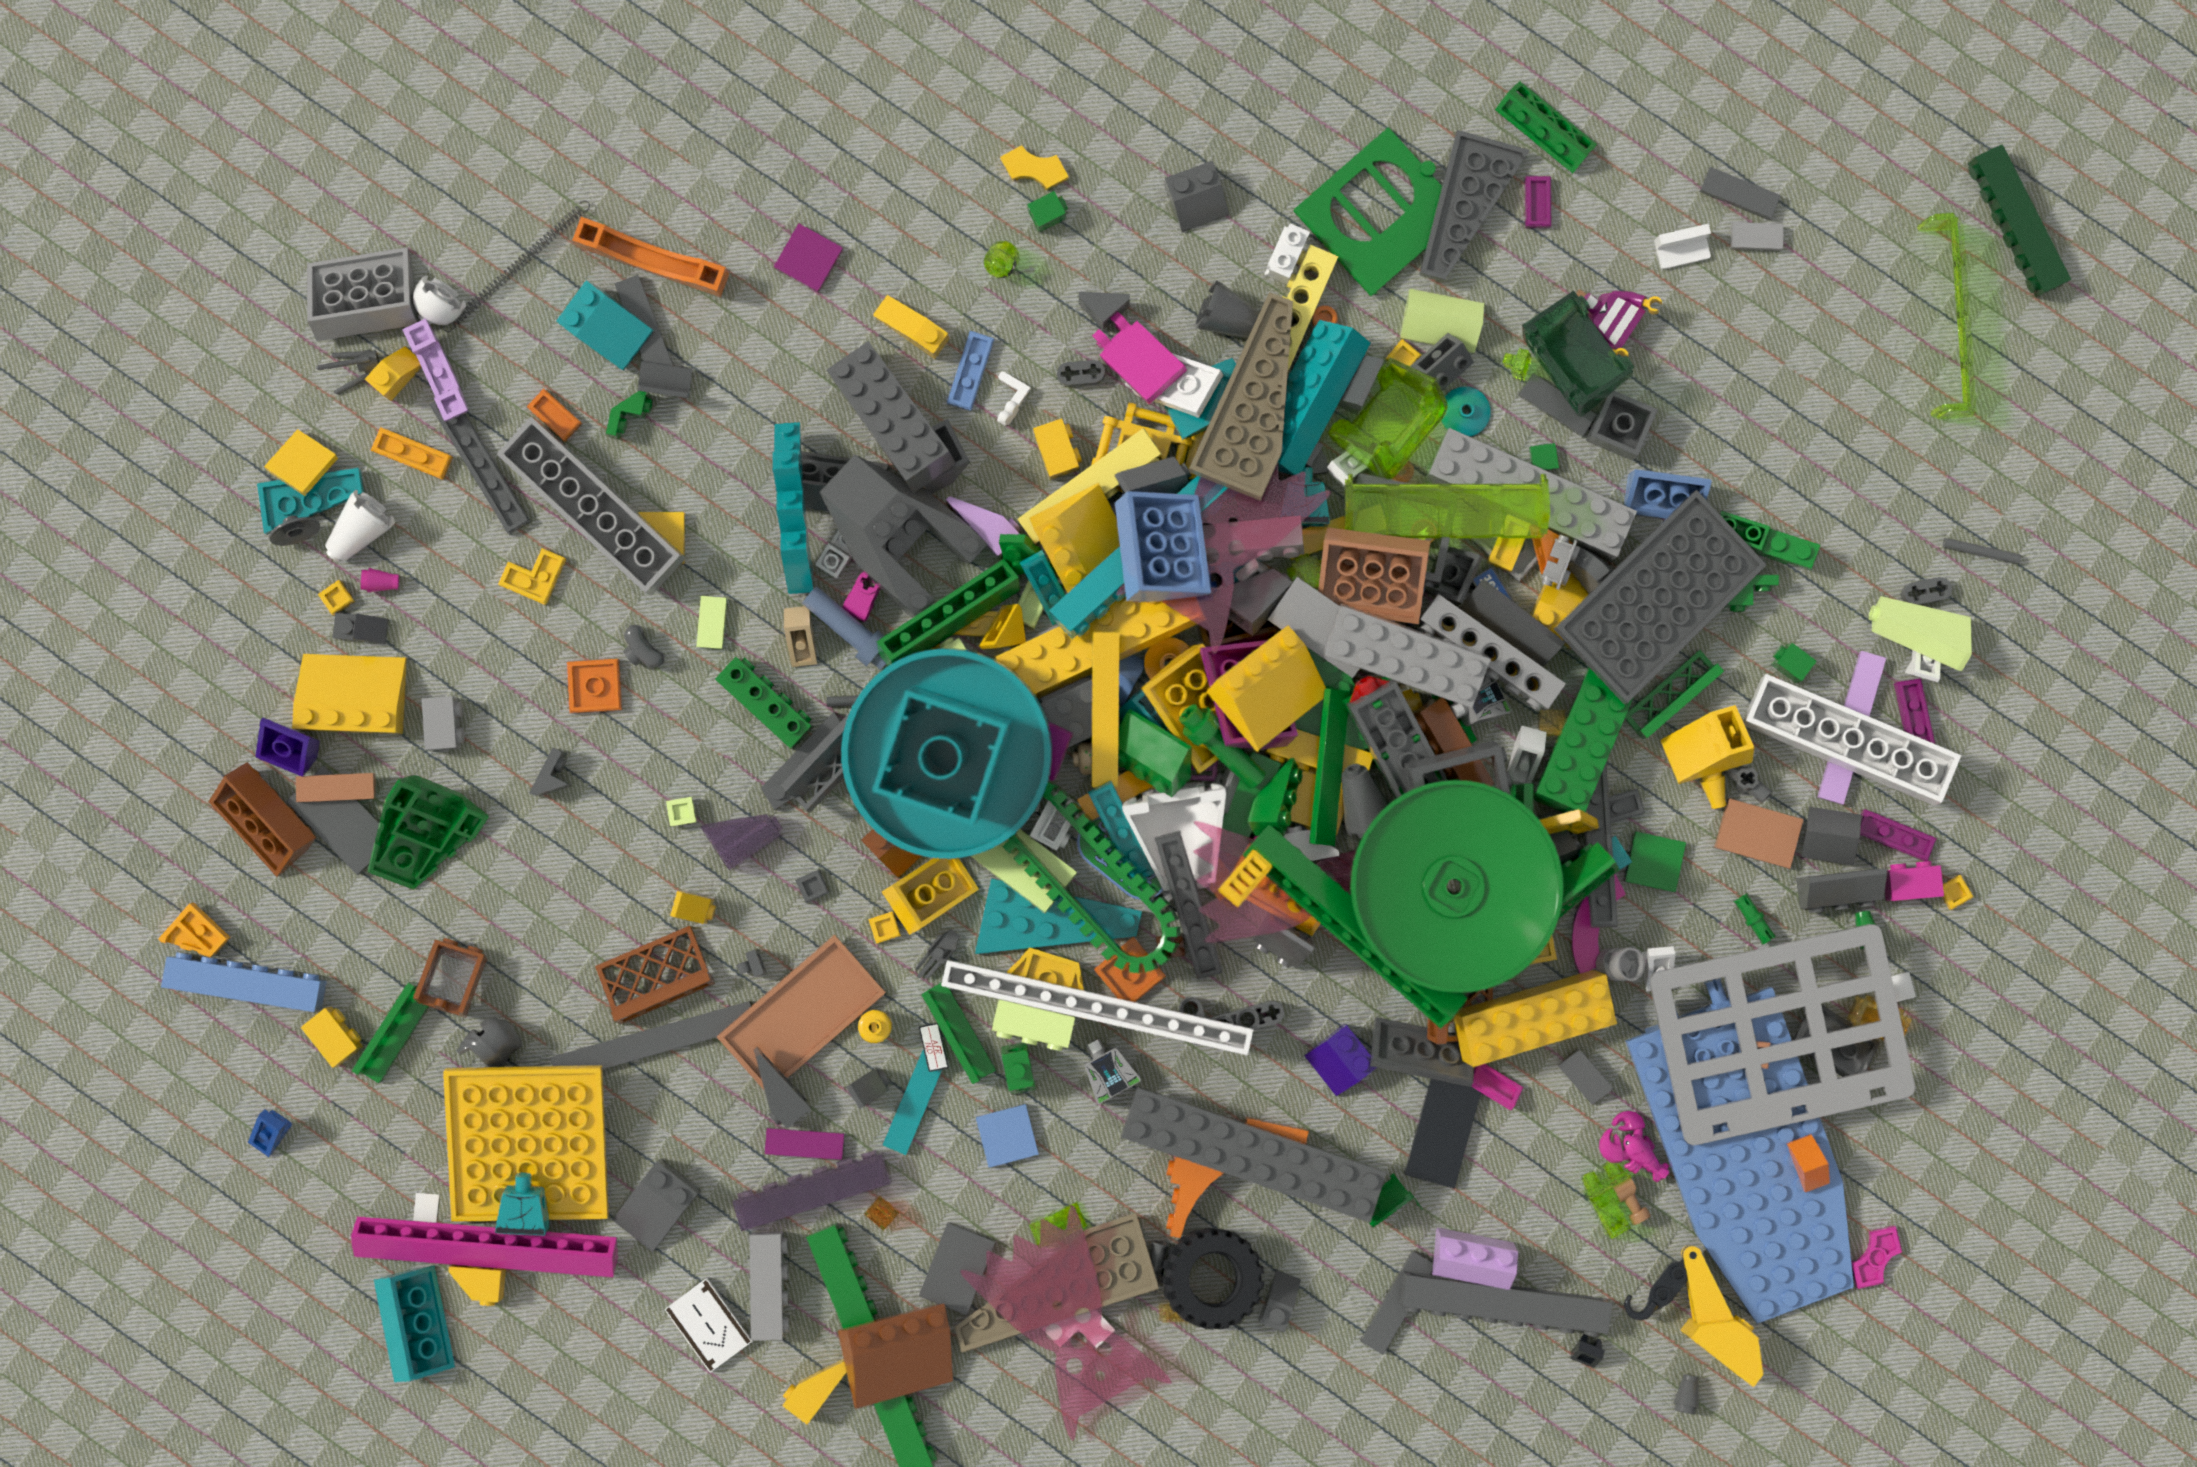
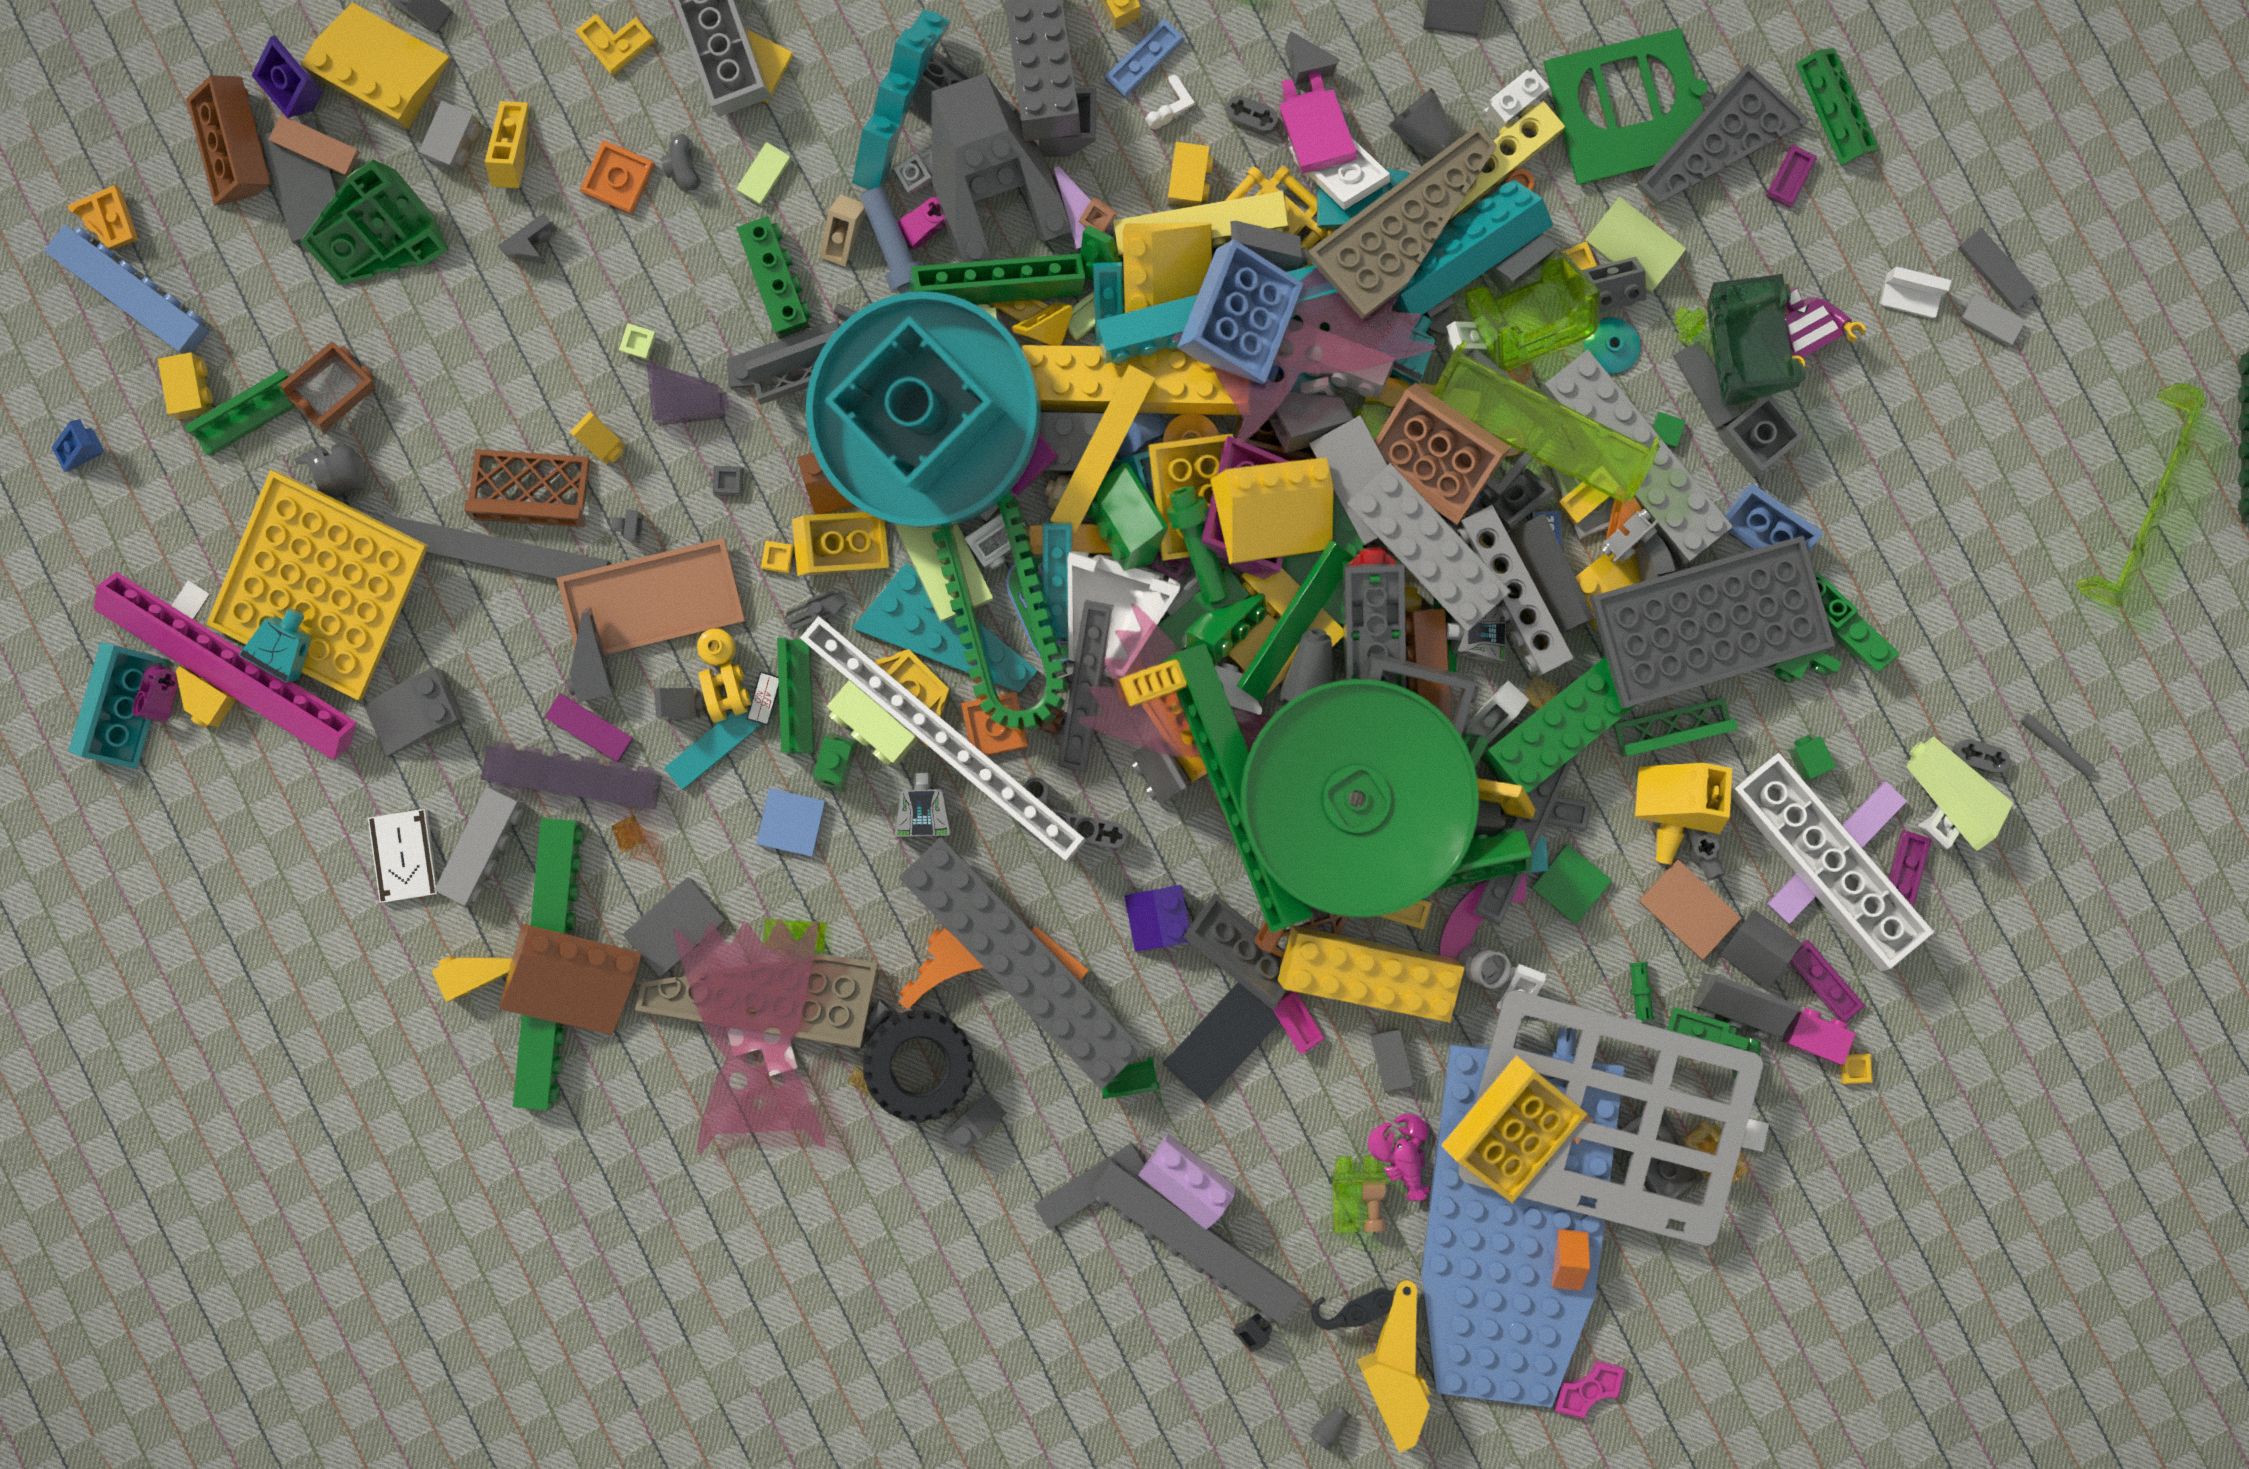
camera: 30 degrees right, 0 degrees up
(442, 1300) = (156, 697): none -> magenta piece
(492, 705) = (508, 145): none -> yellow slope
(914, 1058) = (738, 698): none -> yellow brick
(1002, 521) = (1098, 215): none -> nougat tile
(1711, 1084) = (1513, 1129): none -> yellow slope
(1820, 923) = (1705, 1028): none -> green hinge

